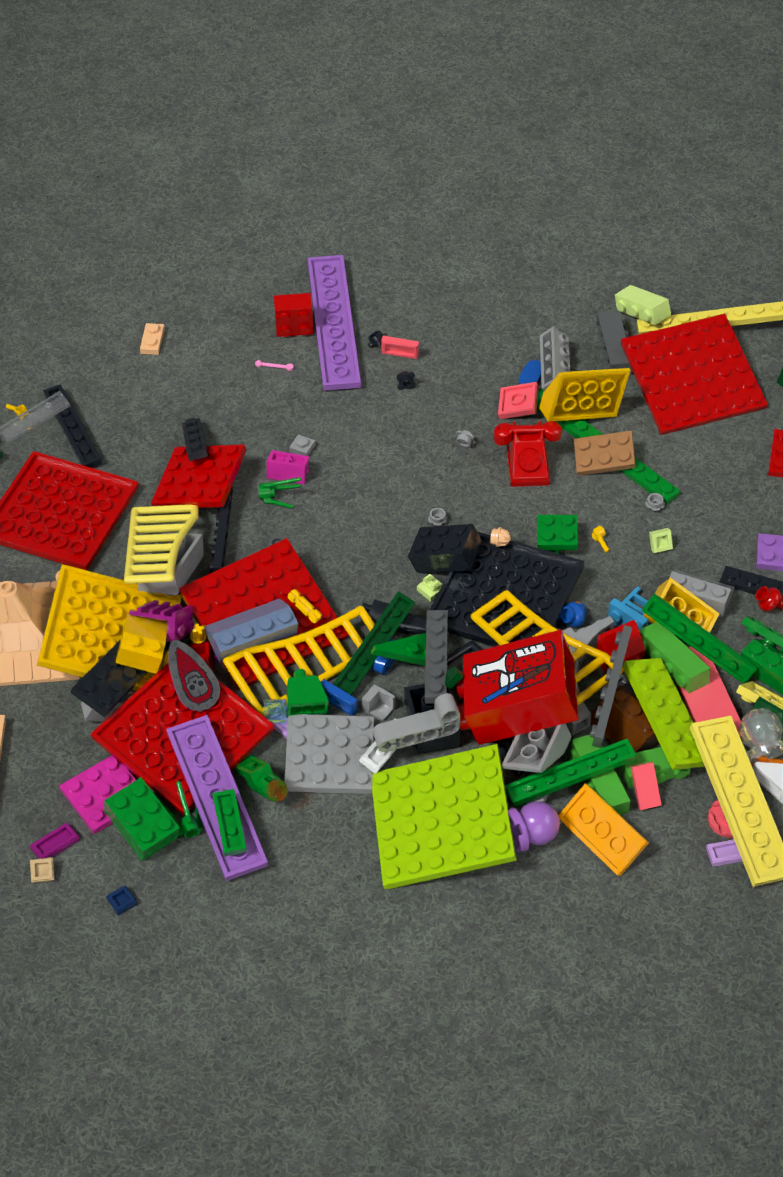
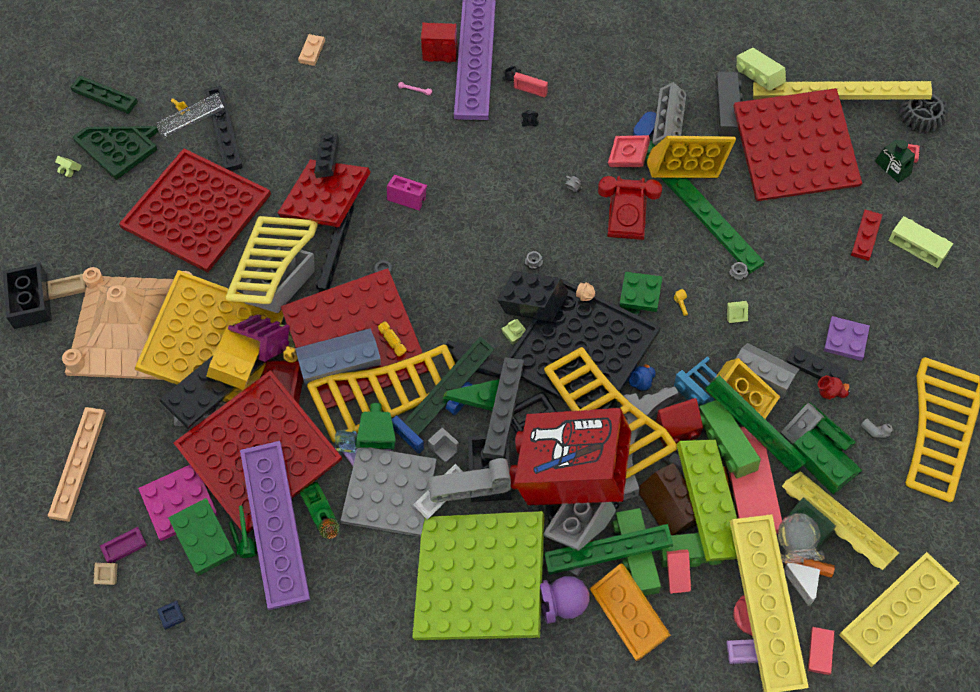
camera: 10 degrees right, 10 degrees up
(192, 678) = (272, 401): shield -> none
(229, 822) = (279, 555): green plate -> none
(268, 490) = (385, 214): green plant -> none
(302, 445) = (424, 172): light grey plate -> none
(452, 677) = (513, 436): dark green tile -> none
(604, 453) = (699, 215): medium nougat plate -> none
(608, 693) = (658, 472): dark grey plate -> none
(747, 631) = (802, 423): none -> light grey plate

